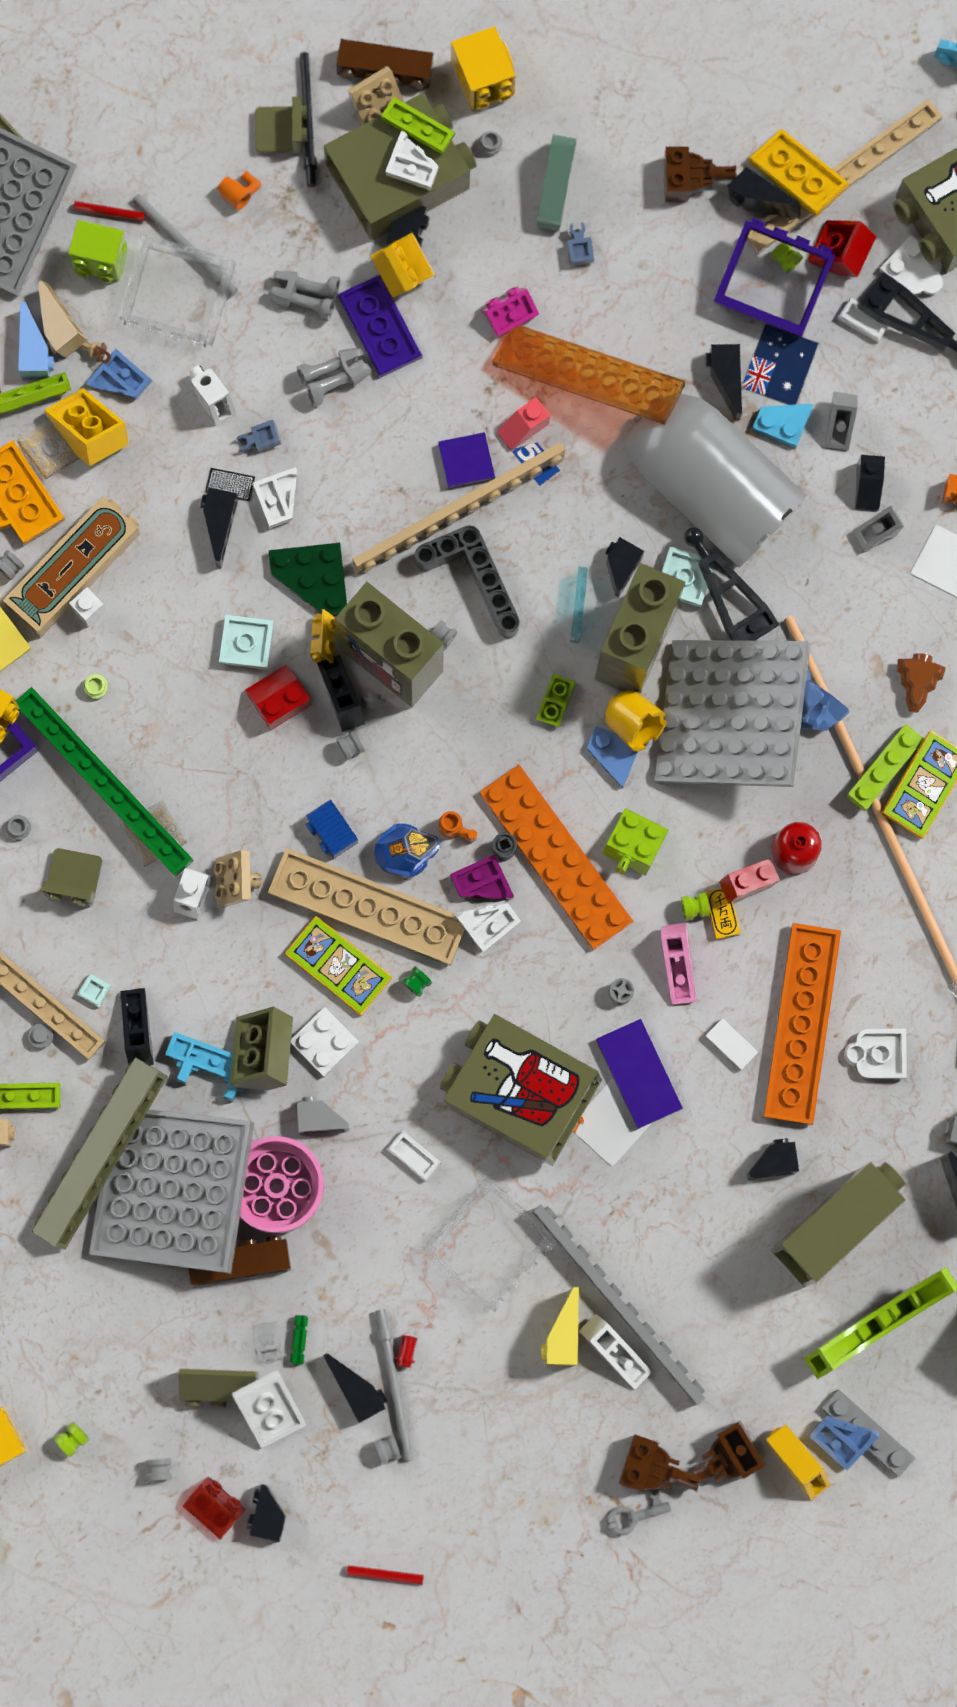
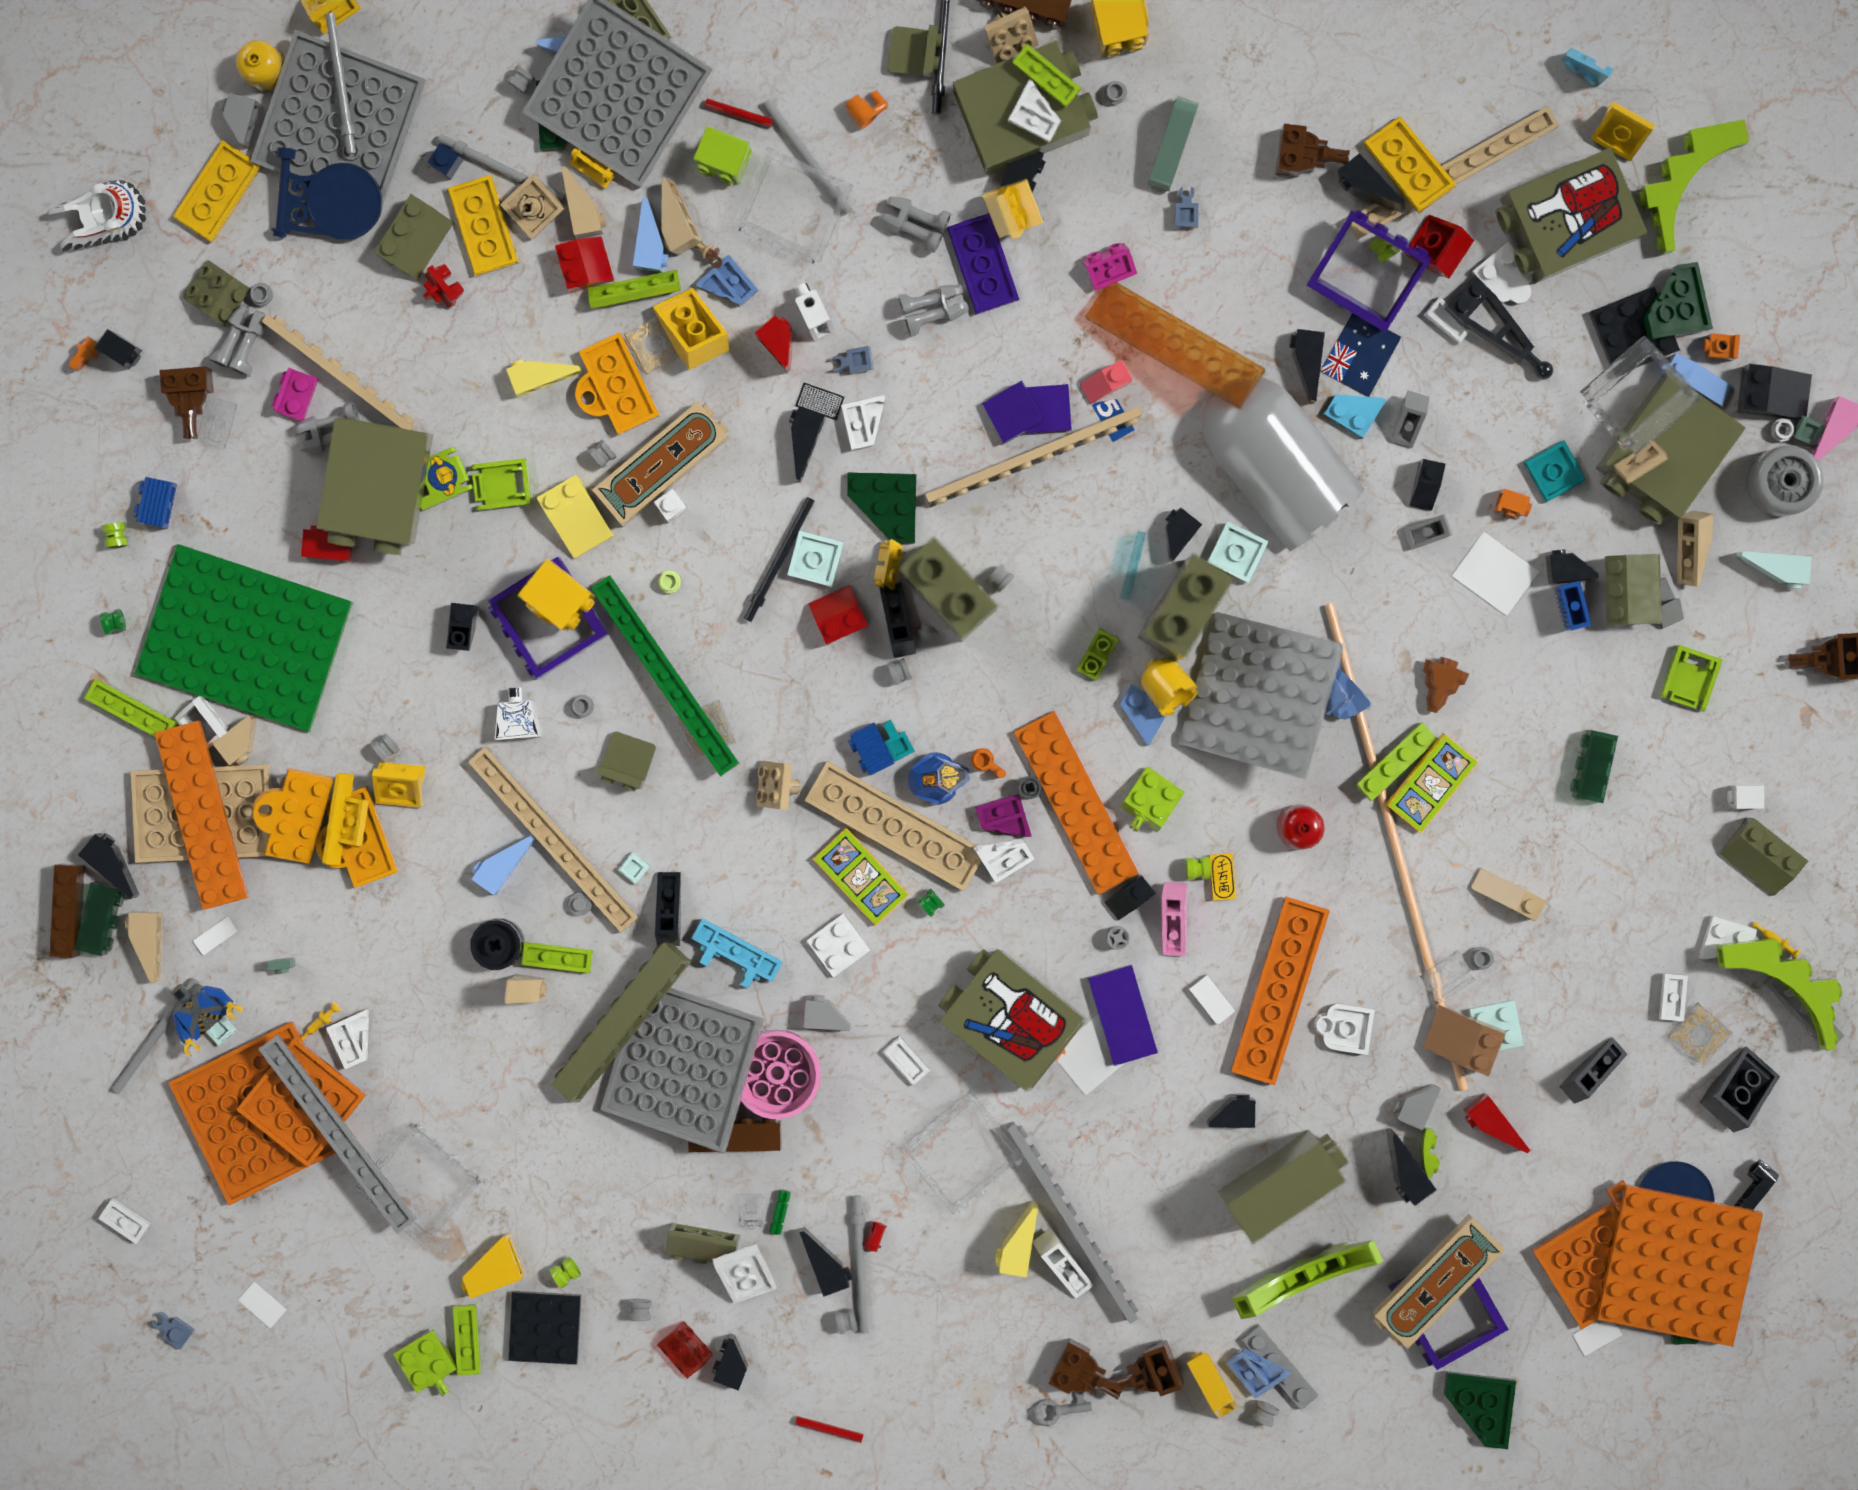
camera: 15 degrees right, 10 degrees up
(56, 1506) = (544, 1327): none -> black plate
(176, 425) = (778, 340): none -> red slope
(191, 692) = (758, 599): none -> black bar
(191, 893) = (735, 790): white torso -> none
(261, 1049) = (779, 948): olive slope -> none
(359, 819) = (897, 744): none -> teal plate
(431, 466) = (1013, 412): none -> dark purple tile
(479, 572) = (1043, 521): dark grey beam -> none
(628, 946) = (1130, 897): none -> black slope
(749, 880) = (1252, 853): brick -> none
(751, 627) = (1292, 609): black plate -> none
(860, 1485) = (1265, 1413): none -> light grey wheel

